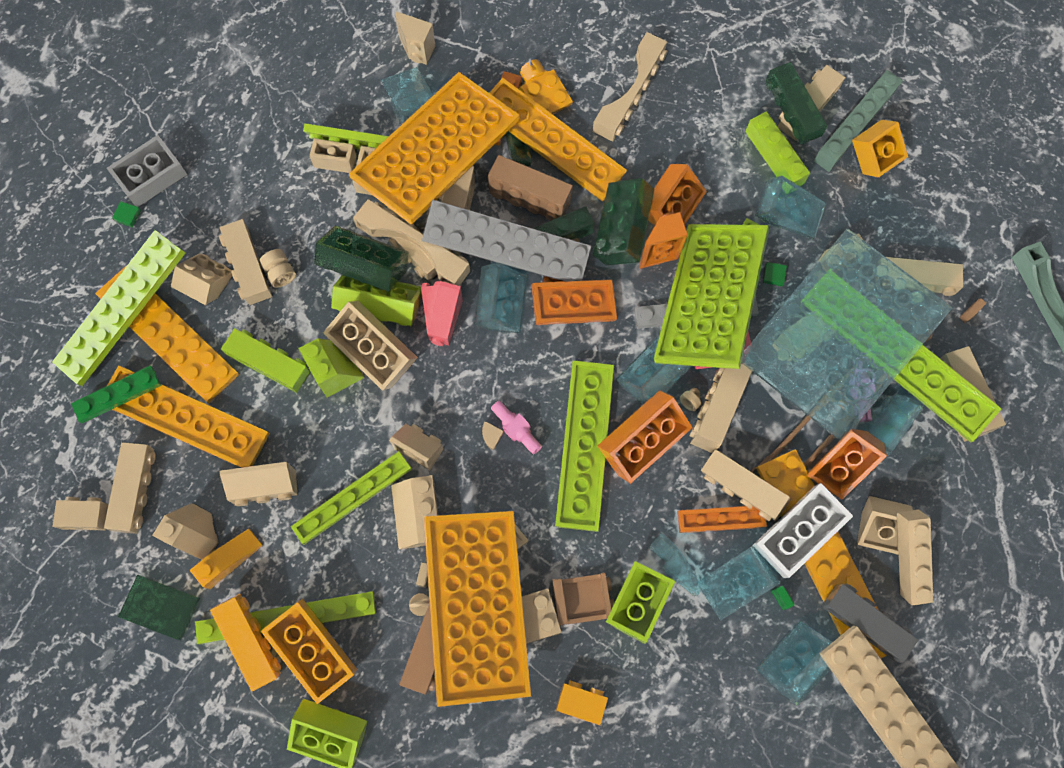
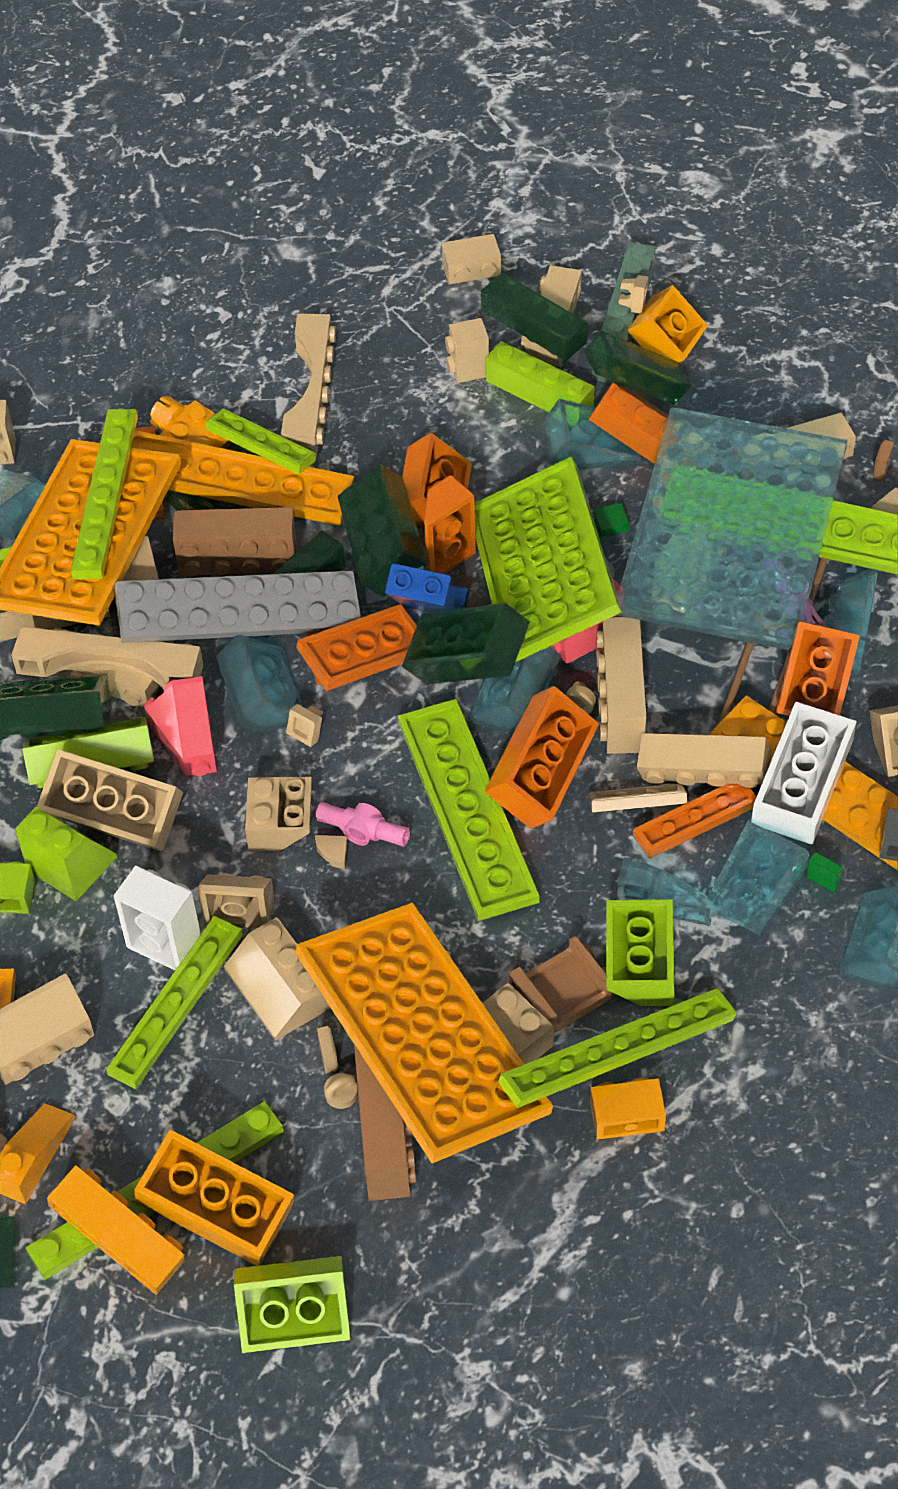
camera: 20 degrees left, 20 degrees down
(360, 443) = (157, 917): none -> white brick
(458, 126) = (104, 494): none -> lime plate
(468, 396) = (277, 812): none -> tan slope
(514, 340) = (304, 724): none -> tan tile
(579, 120) = (261, 441): none -> lime tile
(590, 670) = (616, 1048): none -> lime plate
(628, 287) = (424, 590): none -> blue panel
(634, 337) = (466, 644): none -> clear green brick
(692, 488) = (637, 797): none -> tan tile
(741, 107) = (467, 348): none -> tan brick
(778, 35) = (471, 259): none -> tan brick
(825, 210) = (631, 420): none -> orange slope
(843, 174) = (637, 368): none -> clear green brick
(872, 115) = (638, 291): none -> tan tile

